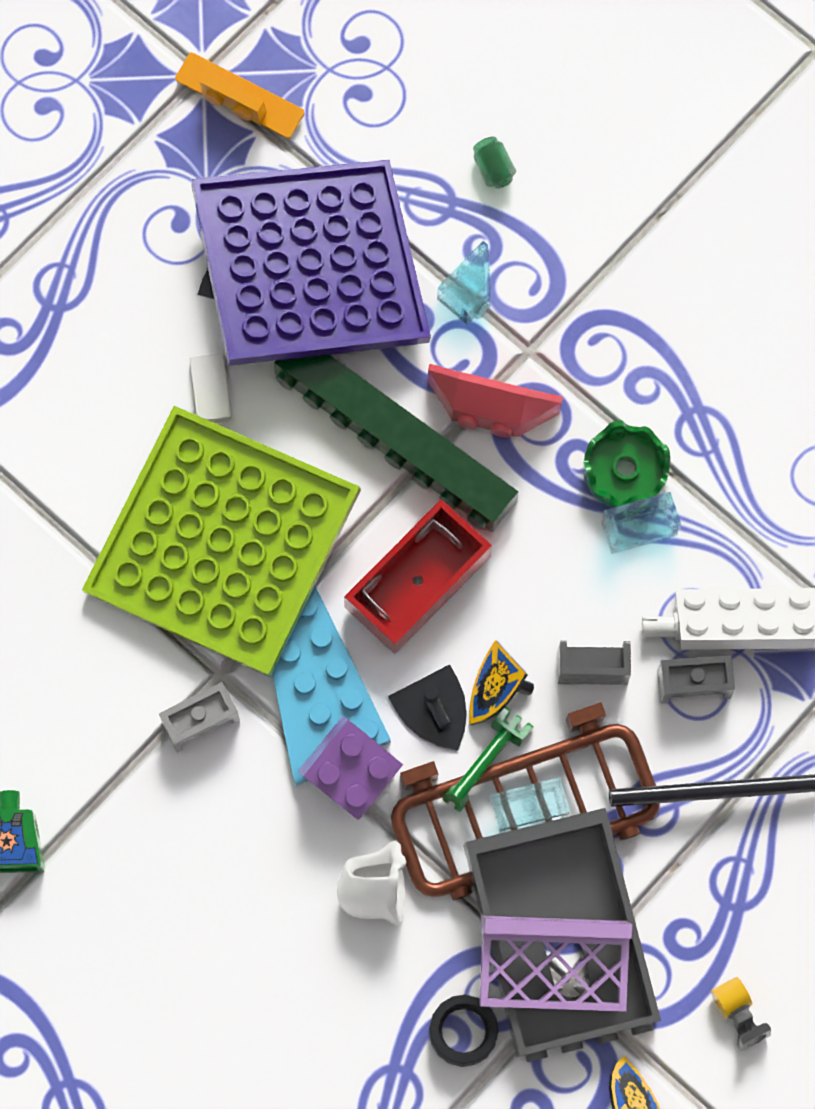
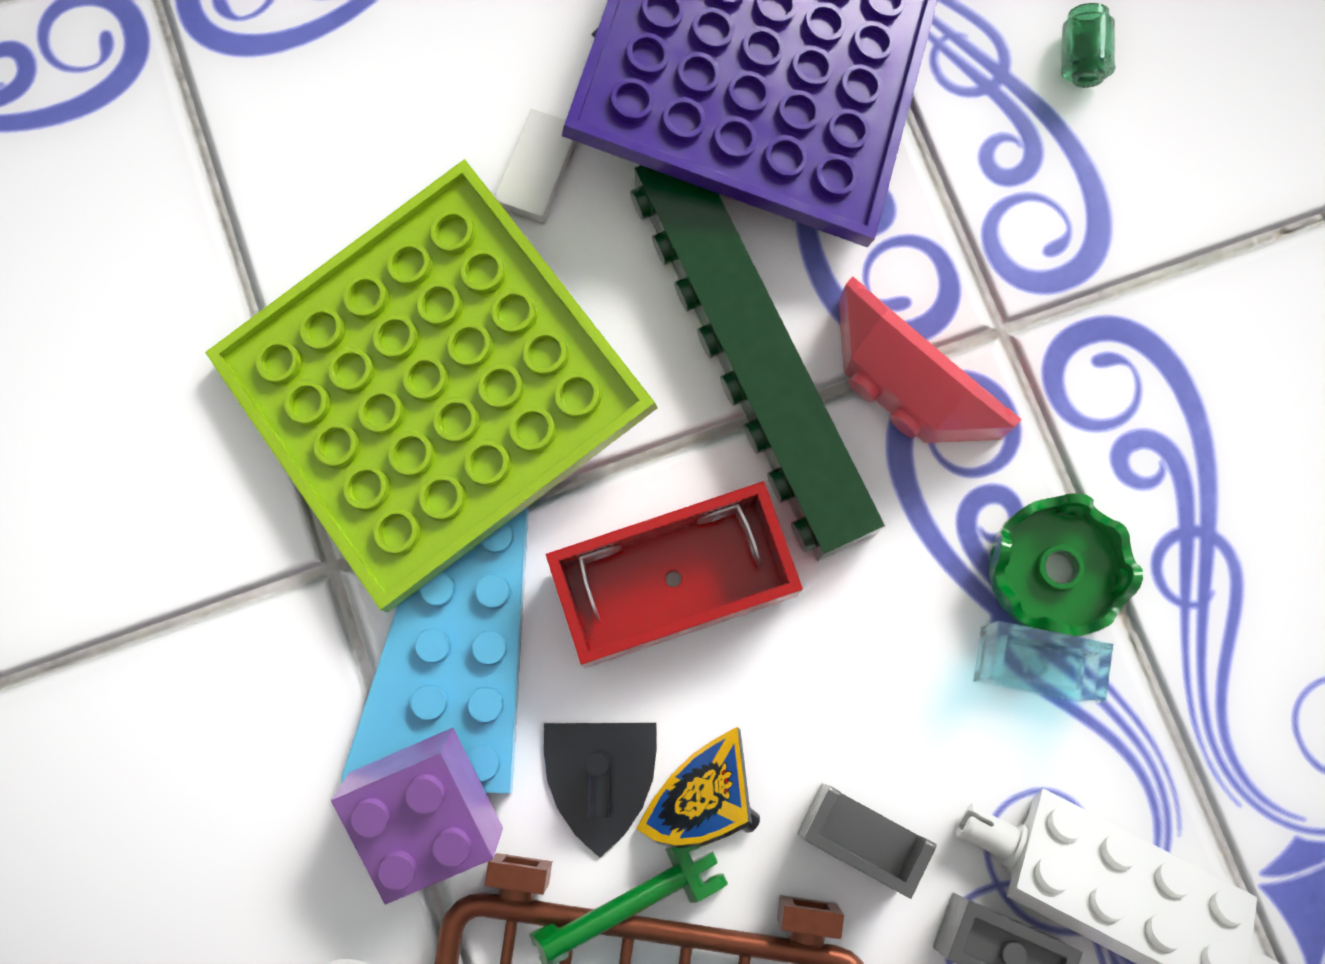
camera: 30 degrees right, 5 degrees up
(198, 715) = (256, 617): light grey panel -> none
(468, 286) = (964, 196): clear light blue slope -> none

